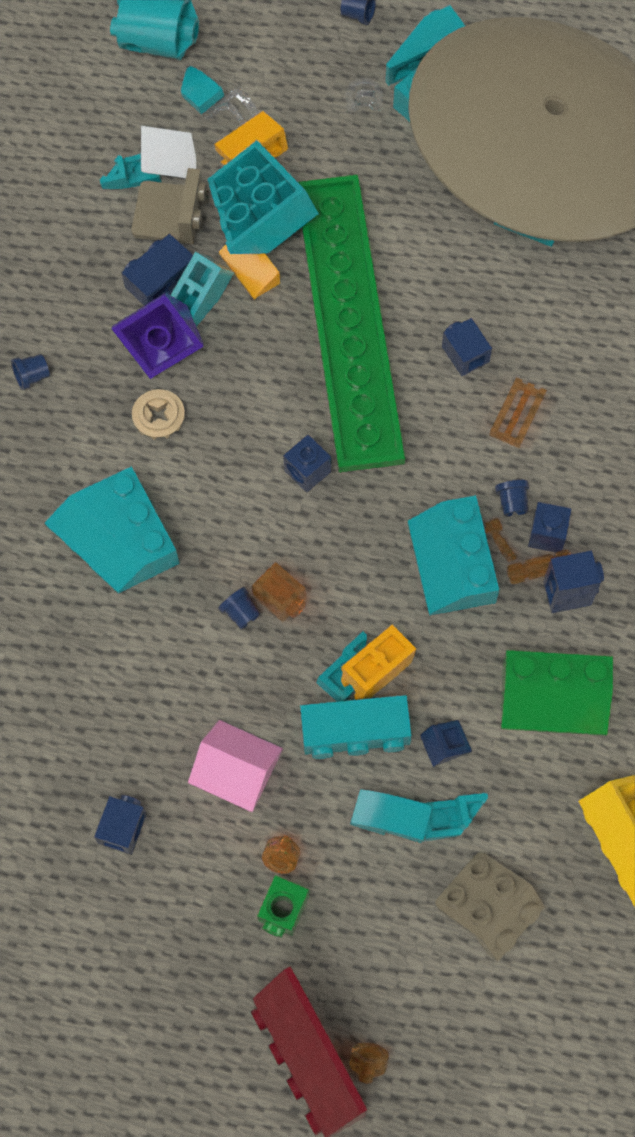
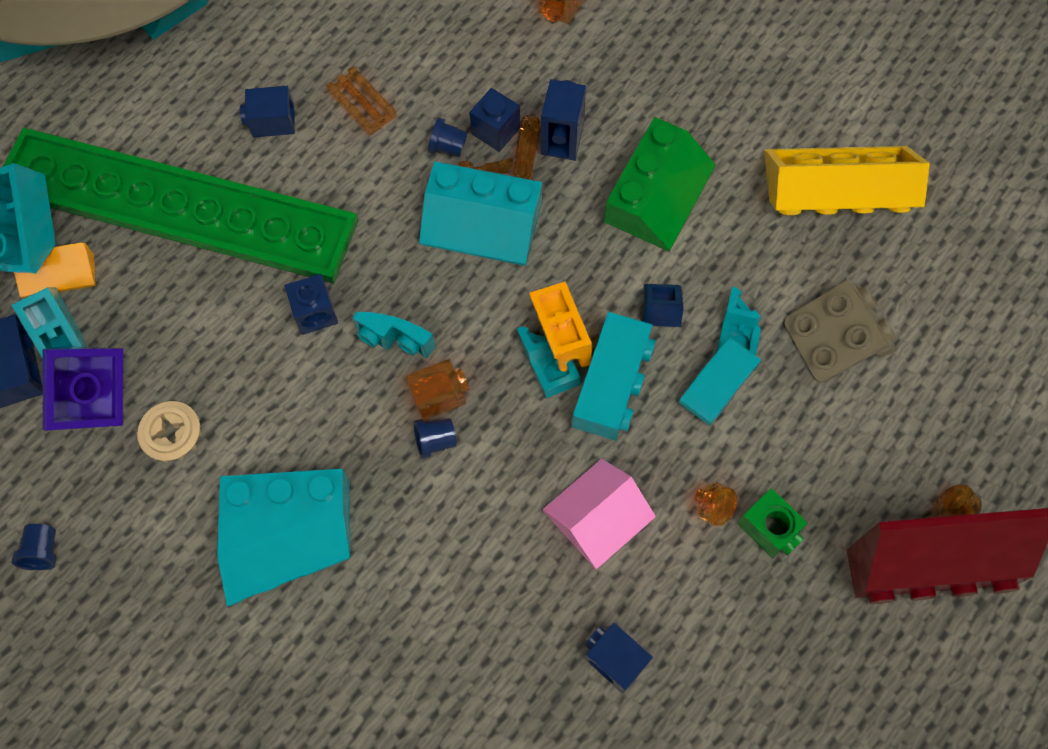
camera: 65 degrees left, 0 degrees up
(311, 531) = (385, 329): none -> teal slope

